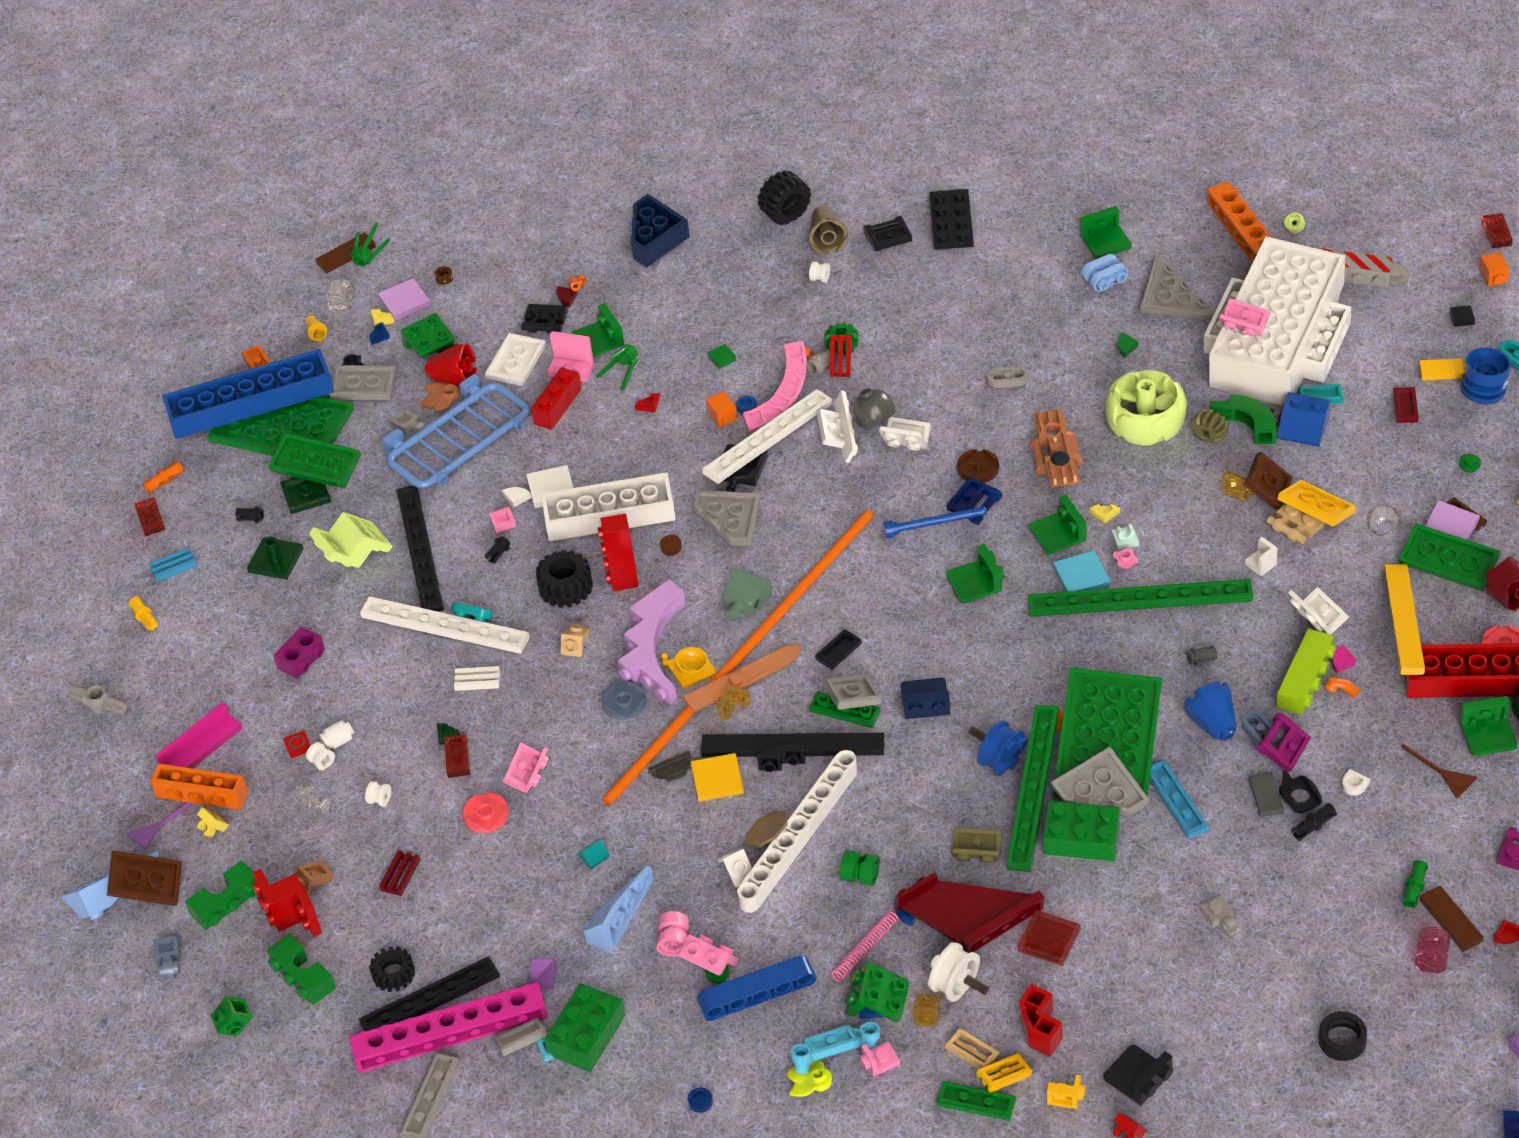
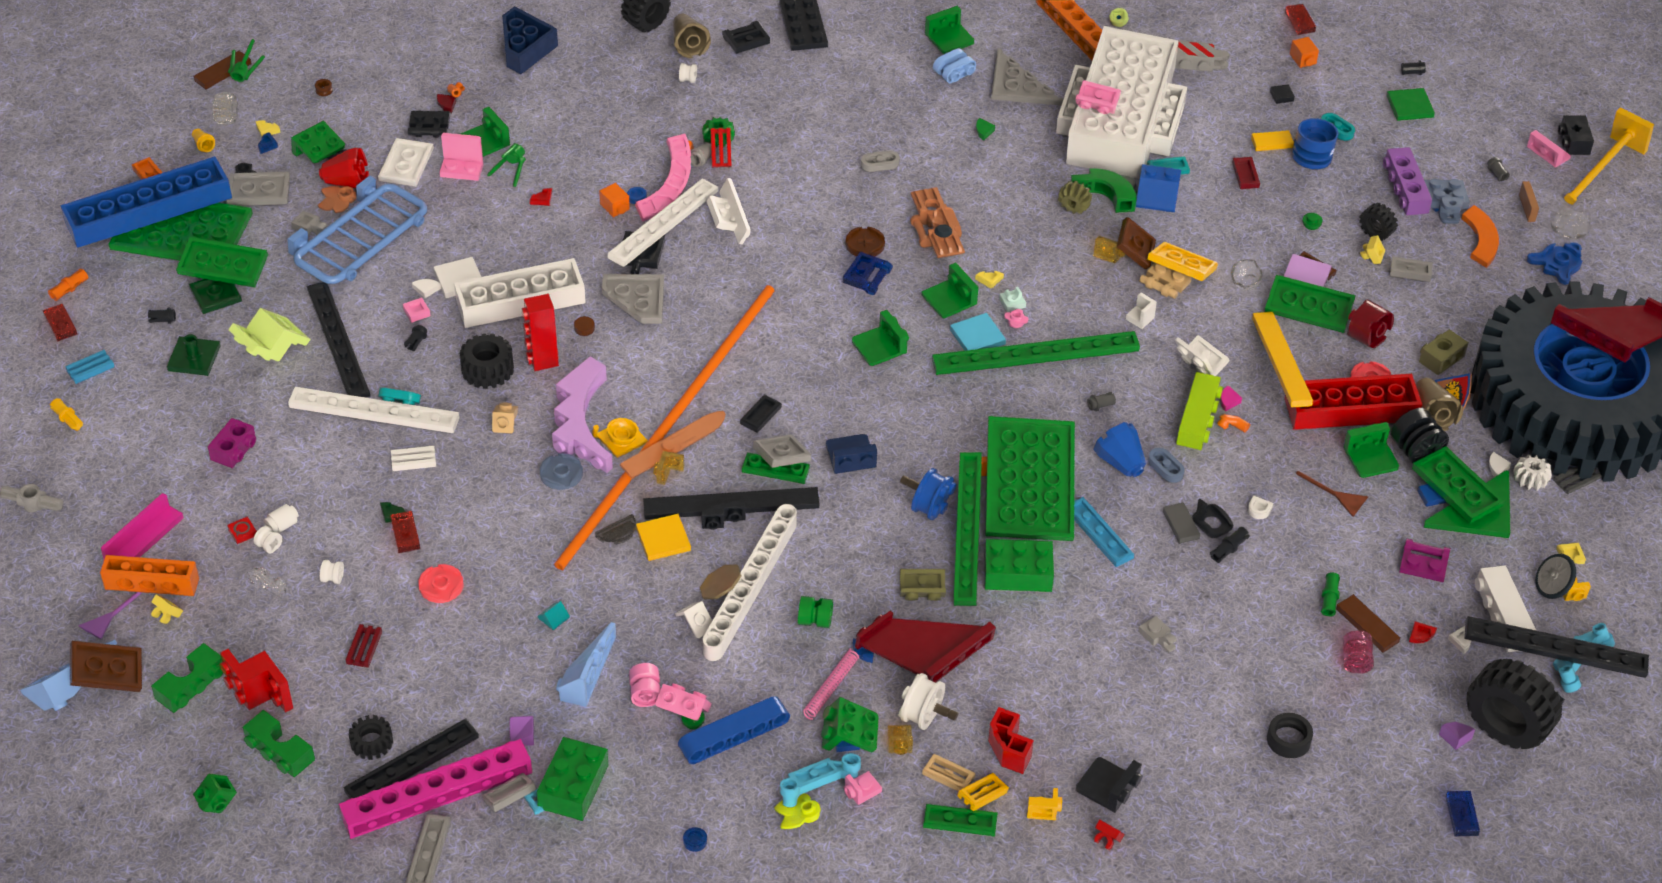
camera: 15 degrees left, 0 degrees up
(167, 950) = (138, 735): sand blue plate -> none
(313, 875) = (280, 651): medium nougat bracket -> none
(404, 299) = (287, 110): lavender tile -> none
(524, 767) = (475, 539): bright pink bracket -> none
(556, 398) = (452, 196): red brick -> none
(721, 356) = (606, 152): green tile -> none
(745, 594) = (665, 367): sand green torso -> none
(872, 406) = (759, 191): dark grey cylinder -> none
(894, 528) = (795, 301): blue piece -> none
(906, 433) = (794, 215): white bracket -> none
(1049, 937) = (1003, 665): clear red plate -> none
(1102, 782) = (1032, 519): light grey plate -> none
(1149, 391) = (1018, 168): yellowish green wheel -> none
(1289, 747) = (1196, 478): magenta plate -> none

